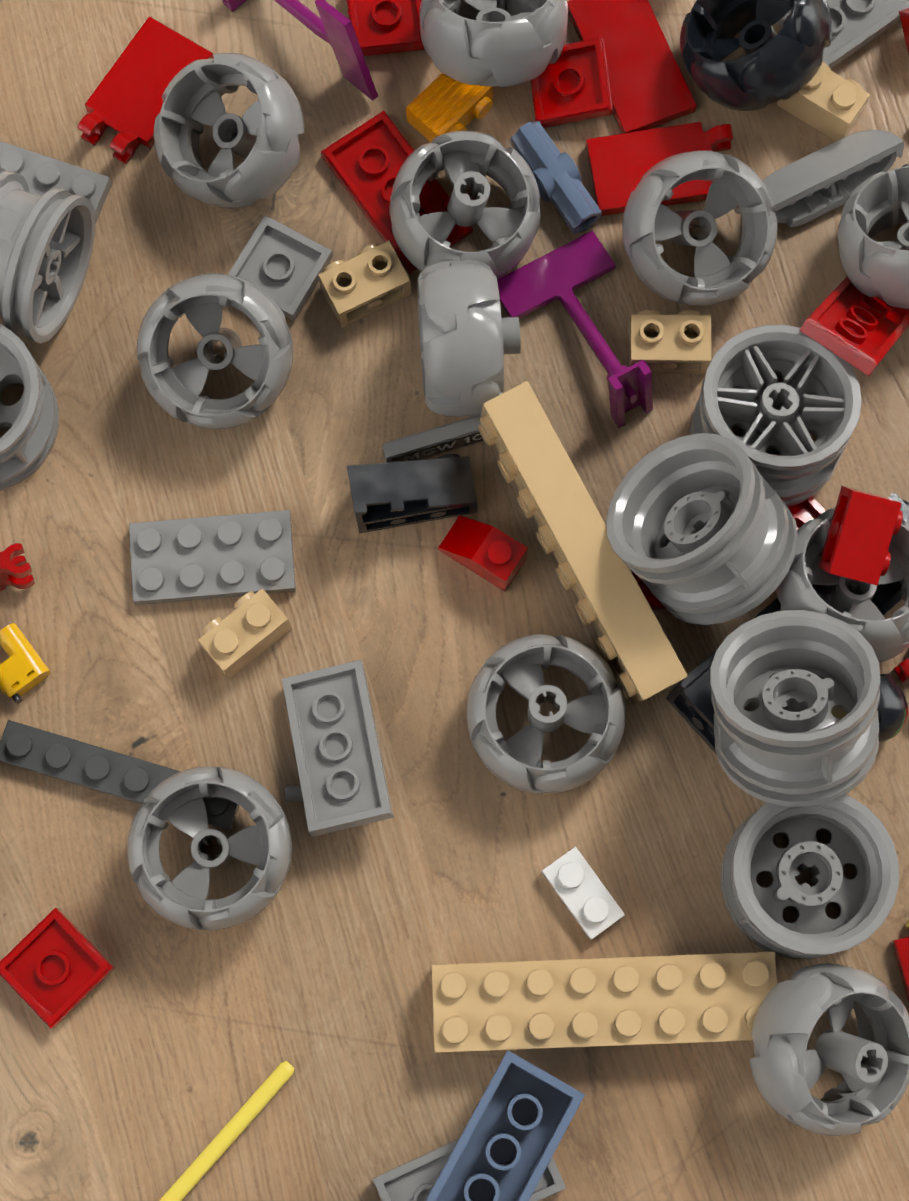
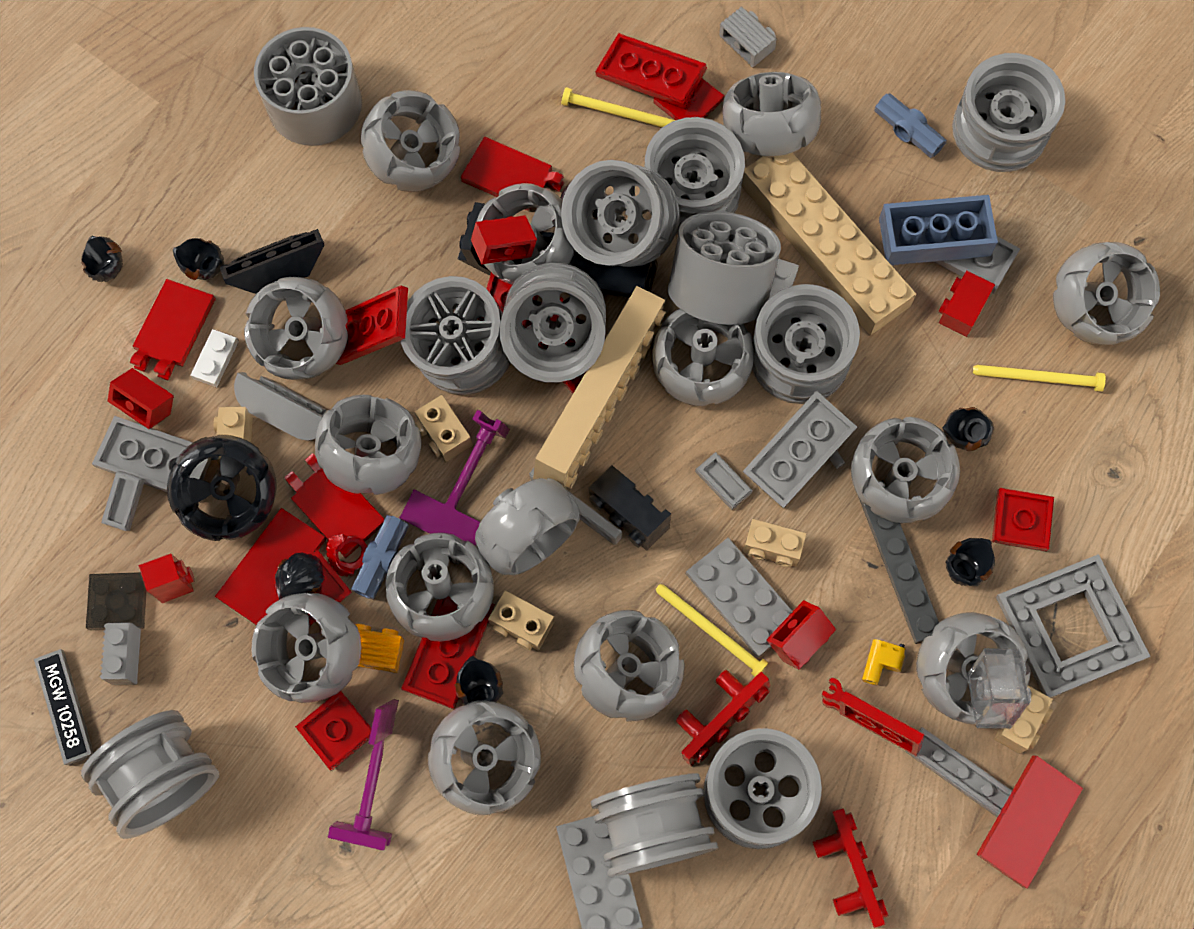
camera: 125 degrees left, 5 degrees down
(48, 853) = (971, 561): none -> black hair
(84, 453) = (719, 727): none -> red plate
(113, 583) = (801, 634): none -> red brick
(134, 87) = (480, 850): red tile -> none
(192, 495) = (747, 658): none -> light yellow bar
(212, 985) = (968, 428): none -> black hair
(282, 264) = (544, 679): light grey plate -> none
(322, 188) = (478, 682): none -> black hair
(370, 636) = (723, 481): none -> light grey tile
(383, 1123) = (966, 303): none -> red brick
(429, 803) = (813, 307): none -> light grey wheel
(484, 551) = (634, 449): red slope -> none
(588, 64) = (299, 575): none -> black hair
(603, 133) = (335, 544): none -> red piece
(689, 796) = (723, 267): none -> light grey wheel

